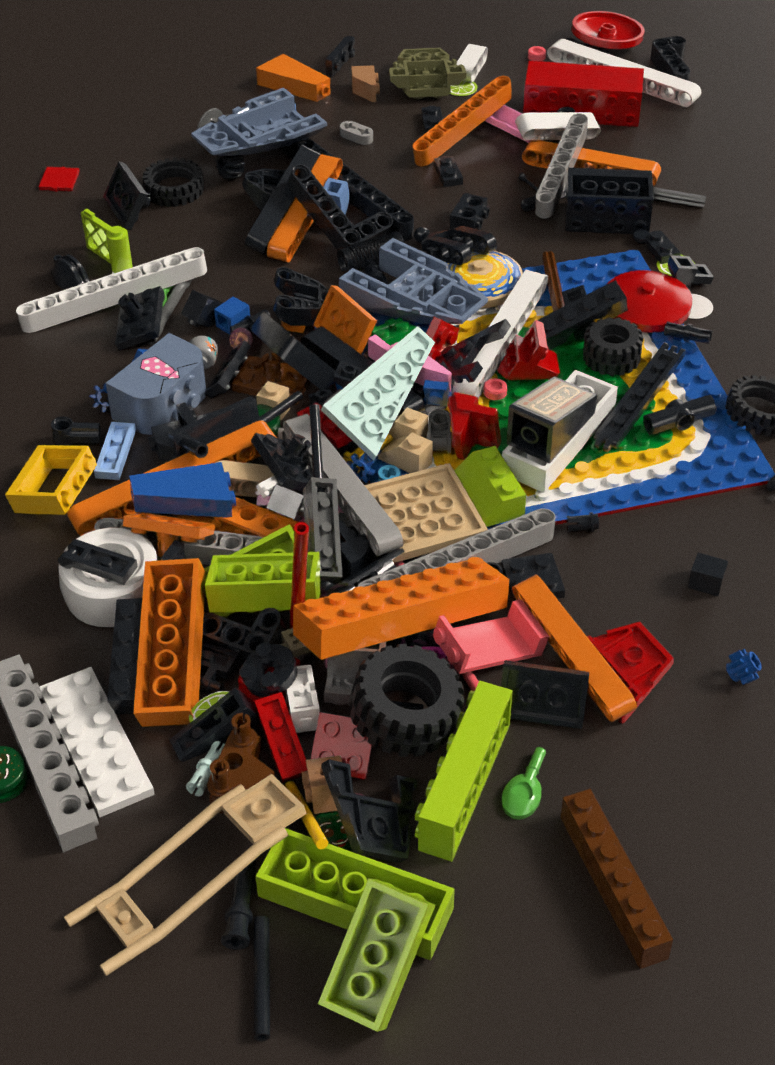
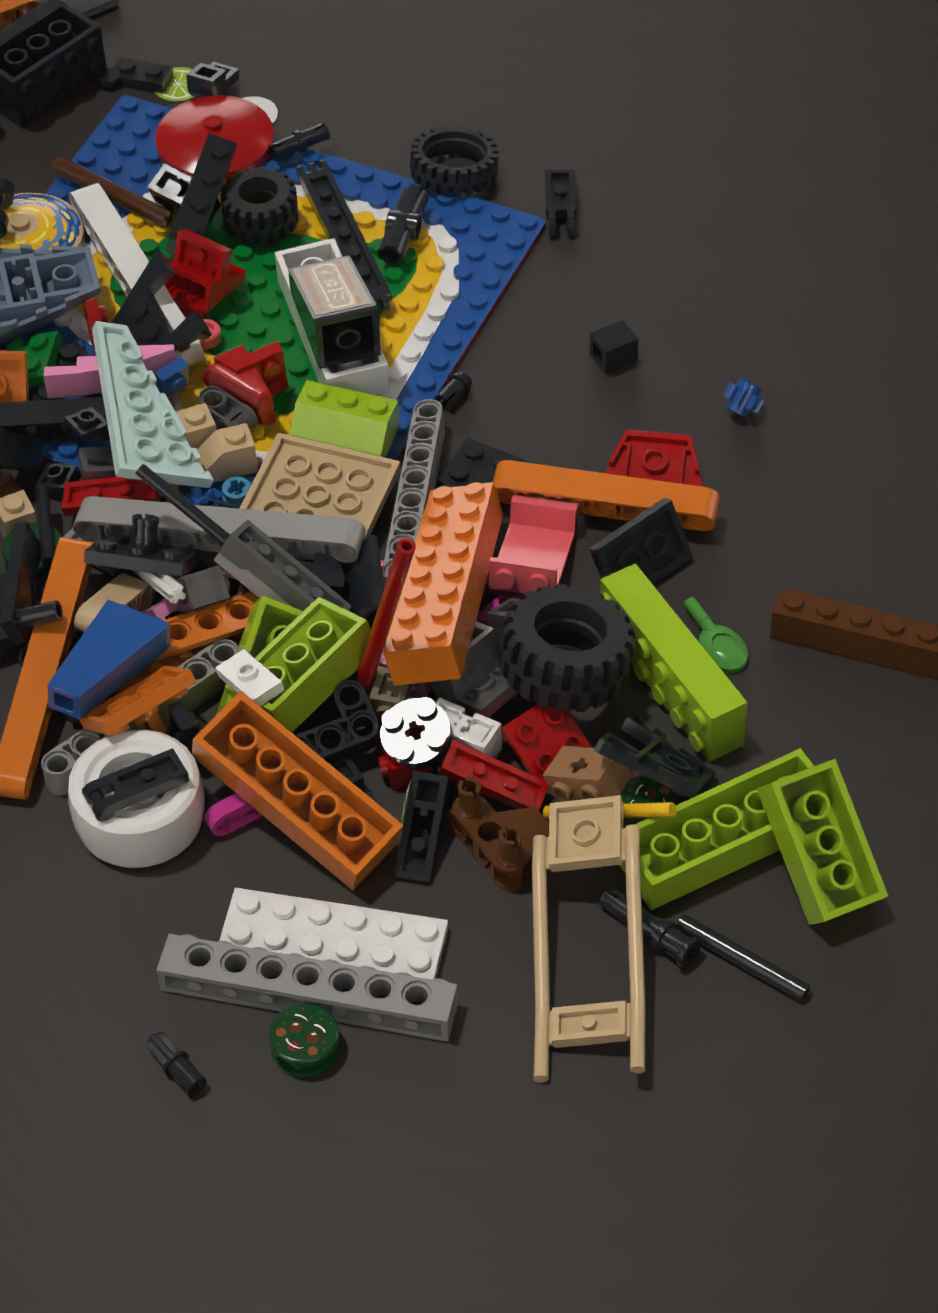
camera: 50 degrees left, 5 degrees up
(124, 655) = (271, 838): black brick -> none
(203, 772) = (466, 863): light aqua pin -> none
(222, 560) = (251, 677): none -> white plate

